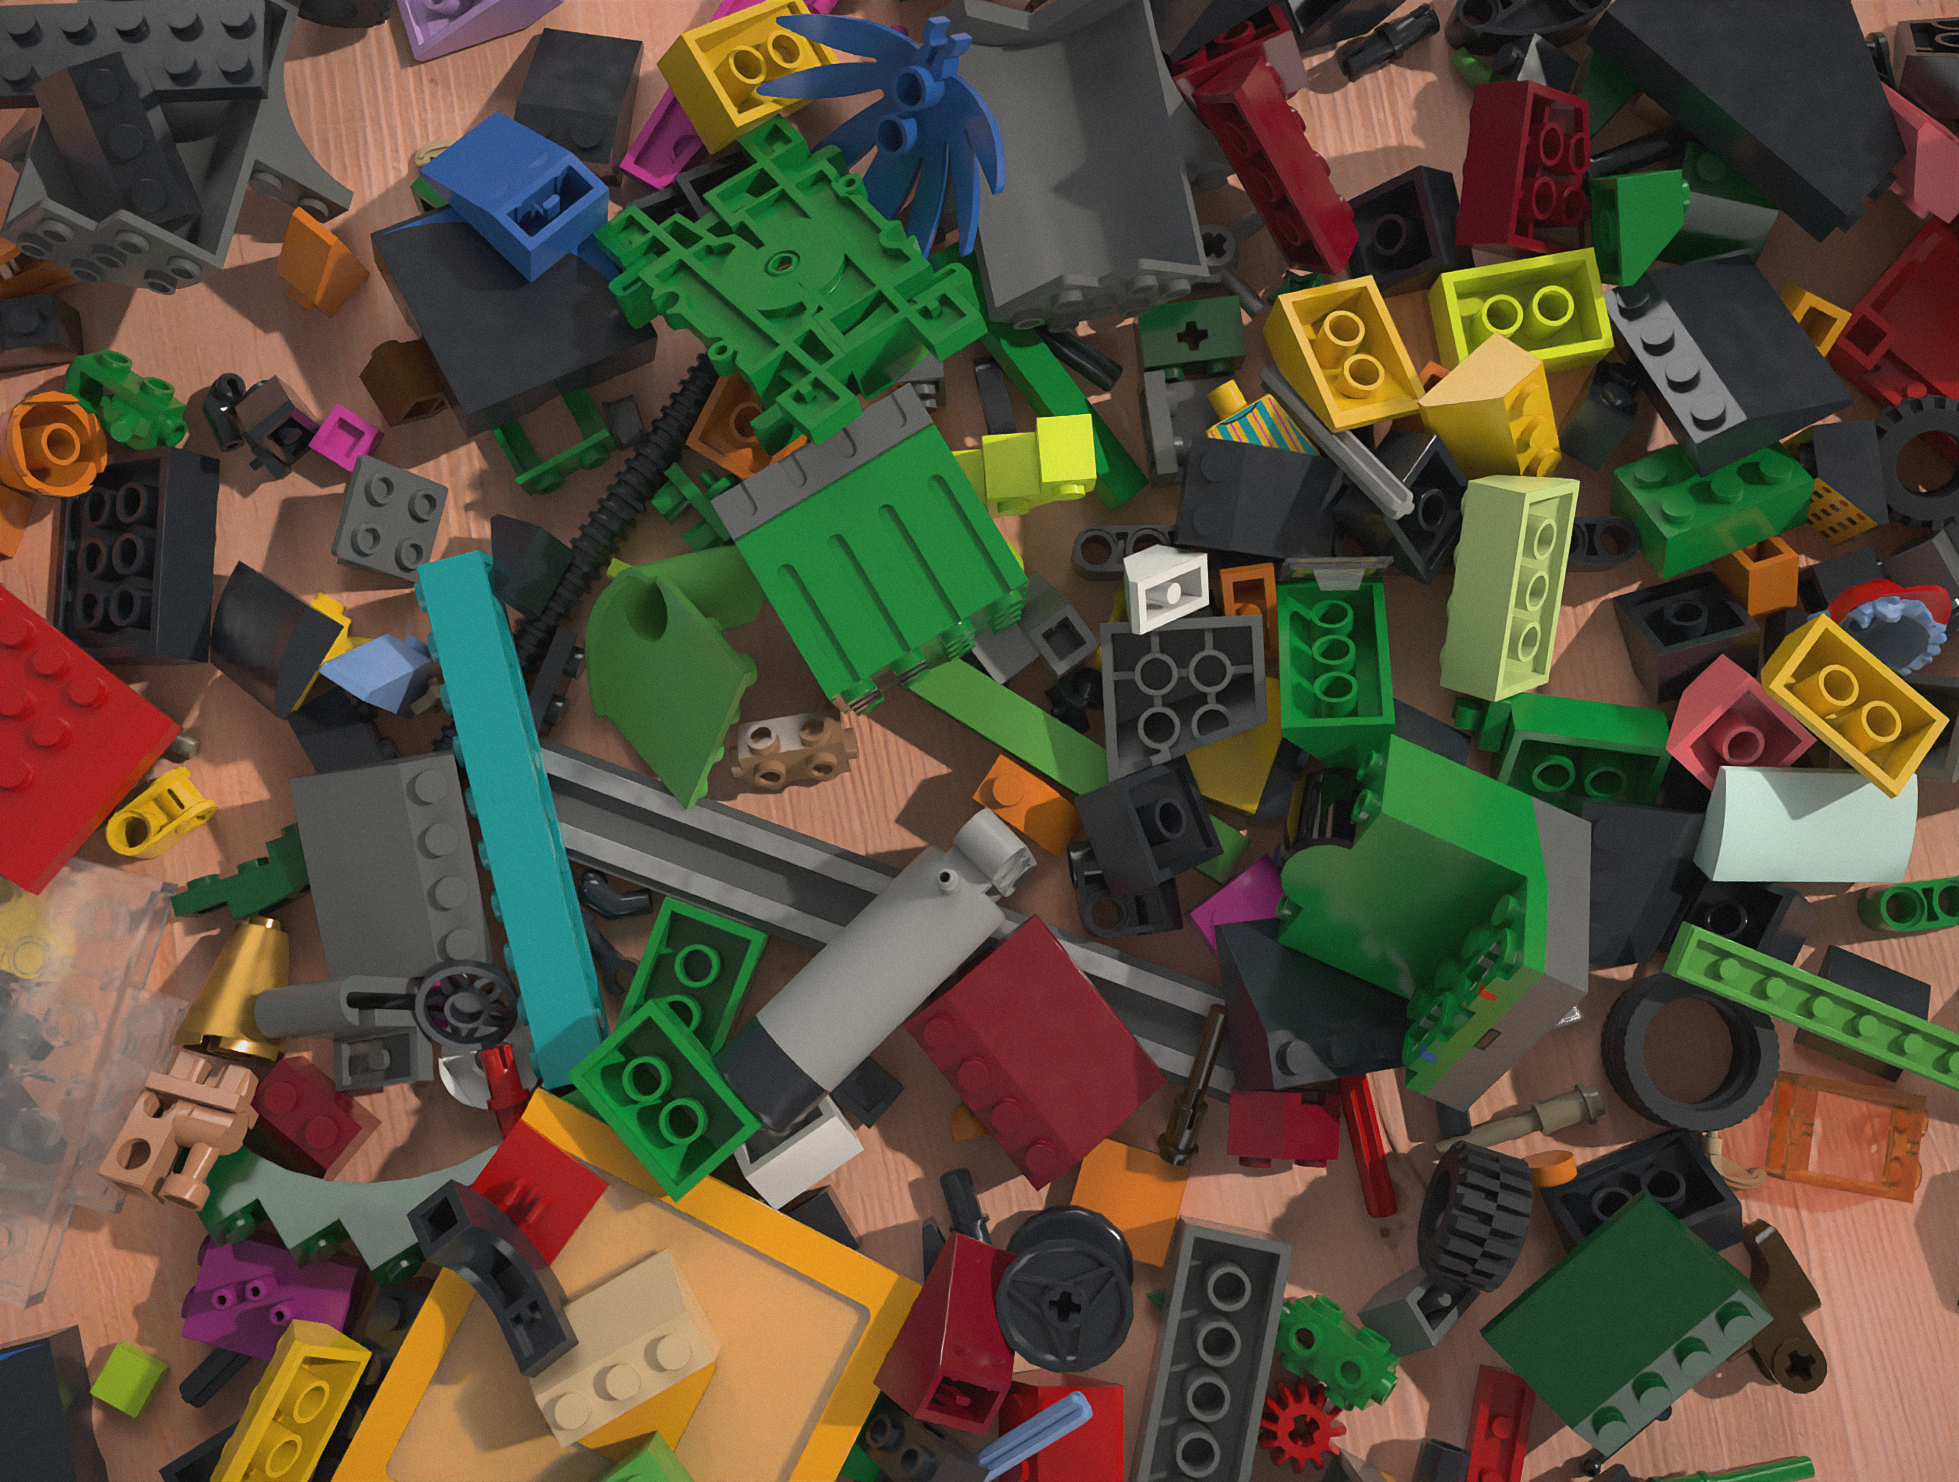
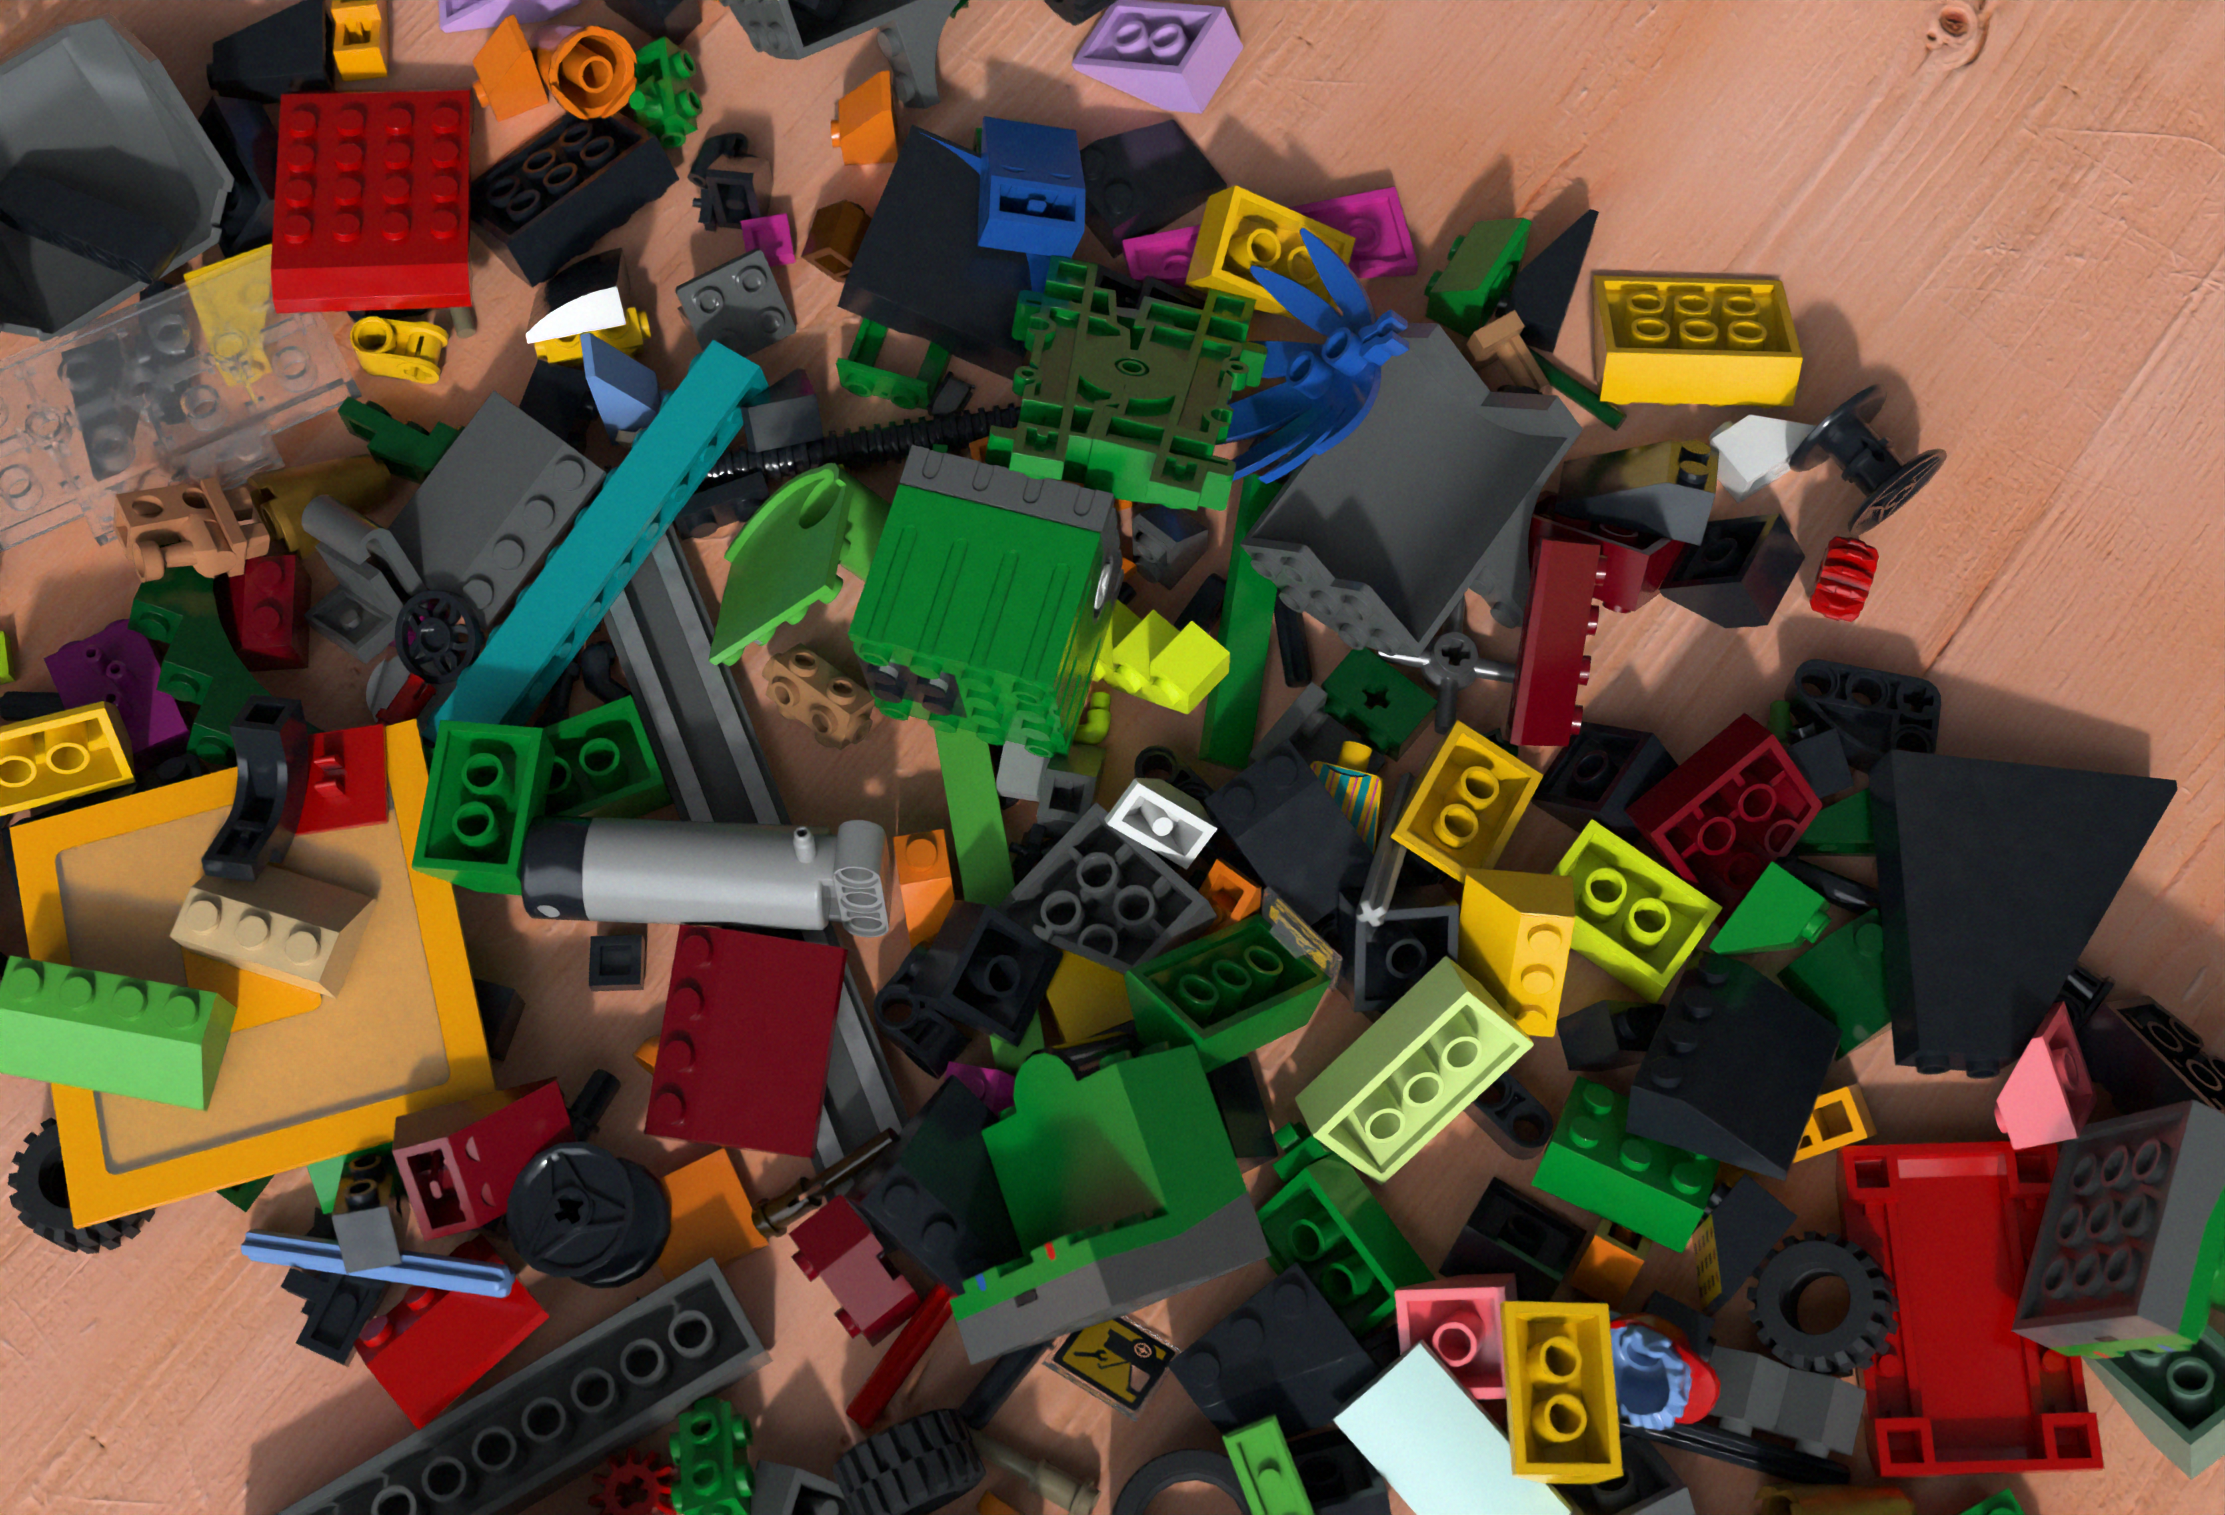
camera: 50 degrees right, 15 degrees down
(792, 1163) = (529, 950): white slope -> none
(1388, 42) = (1736, 650): black pin -> none

